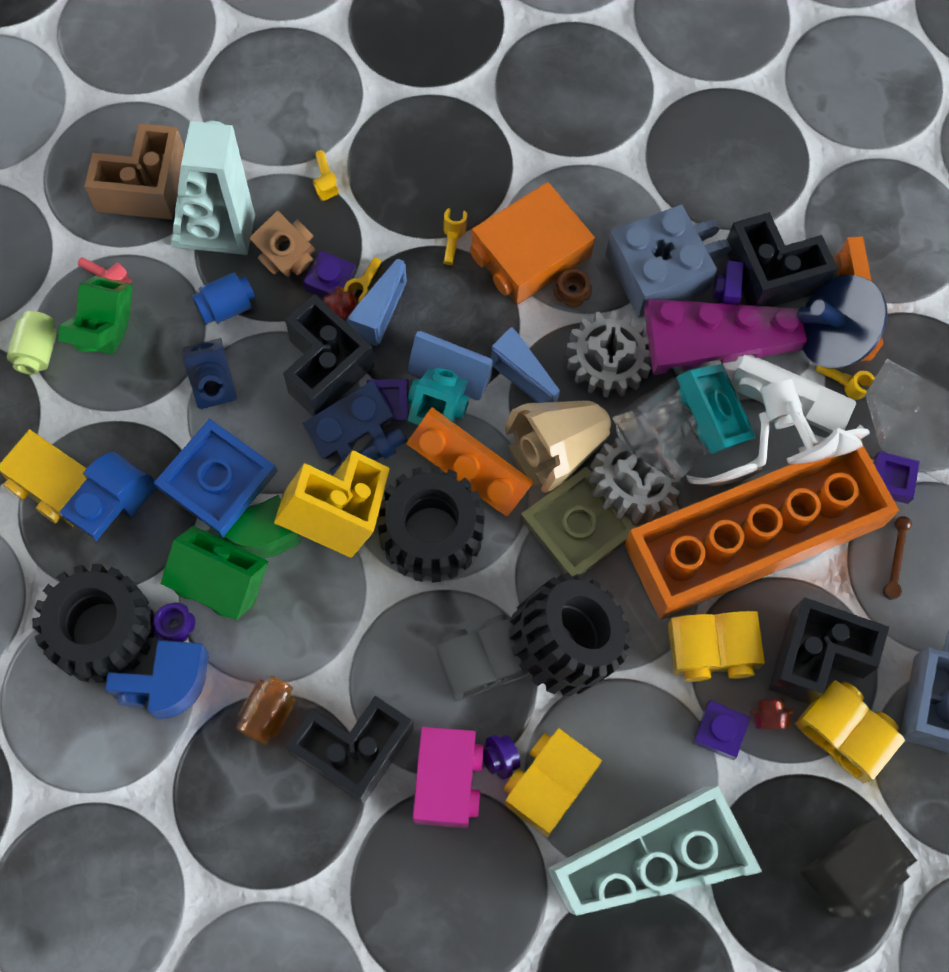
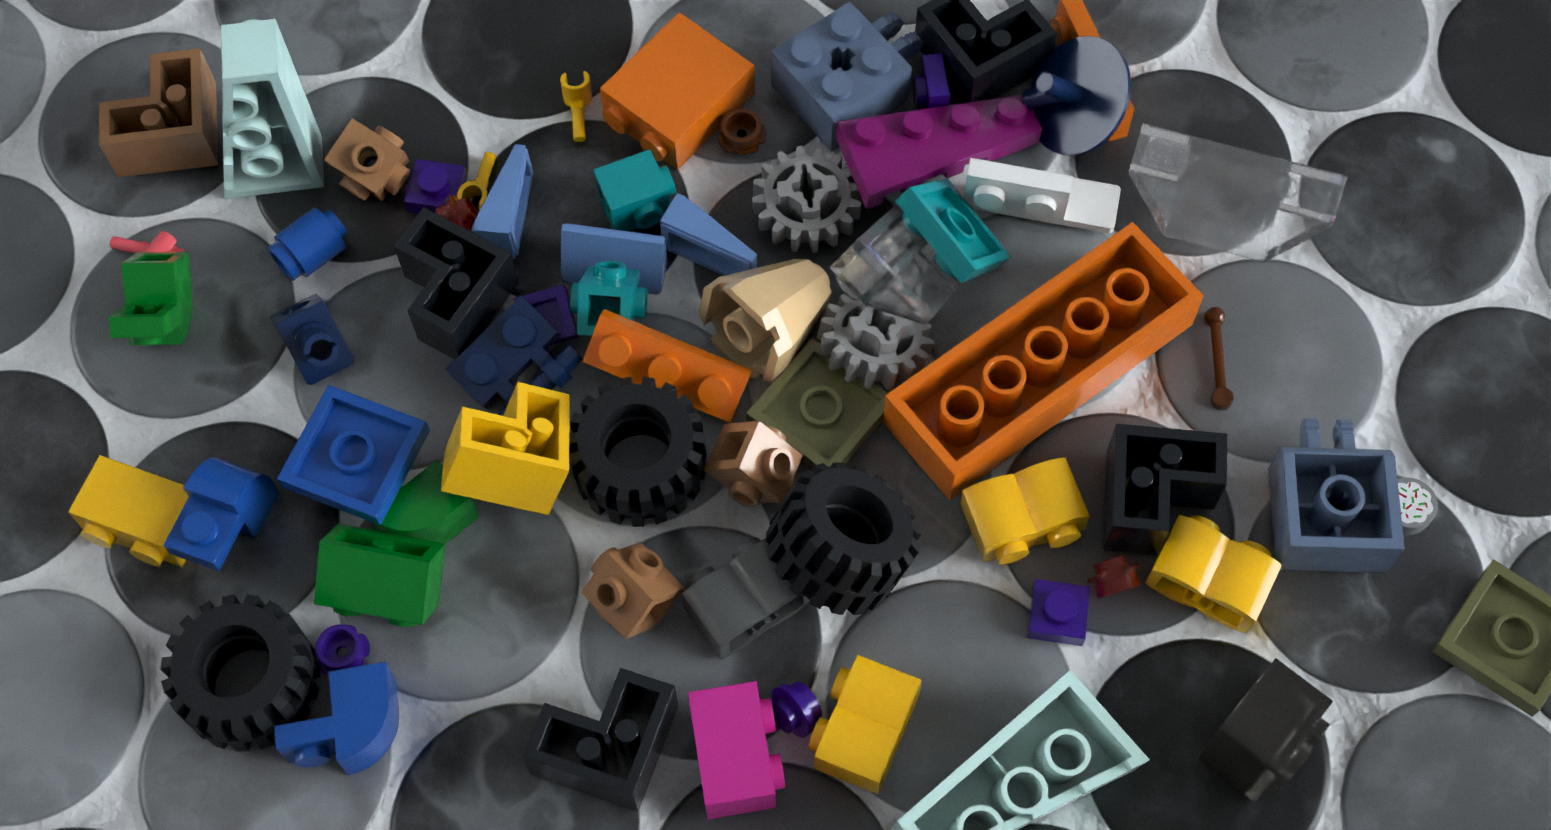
camera: 10 degrees left, 5 degrees down
(32, 342) = (75, 352): yellowish green brick -> none
(265, 709) = (486, 726): clear orange brick -> none
(326, 183) = (402, 79): yellow hand -> none
(400, 631) = (631, 589): none -> medium nougat brick
(479, 316) = (634, 191): none -> teal brick
(516, 556) = (753, 463): none -> medium nougat brick
(785, 410) = (1037, 211): white plant -> none
(850, 382) = (1107, 166): yellow hand -> none
(898, 475) = (1194, 258): dark purple plate -> none

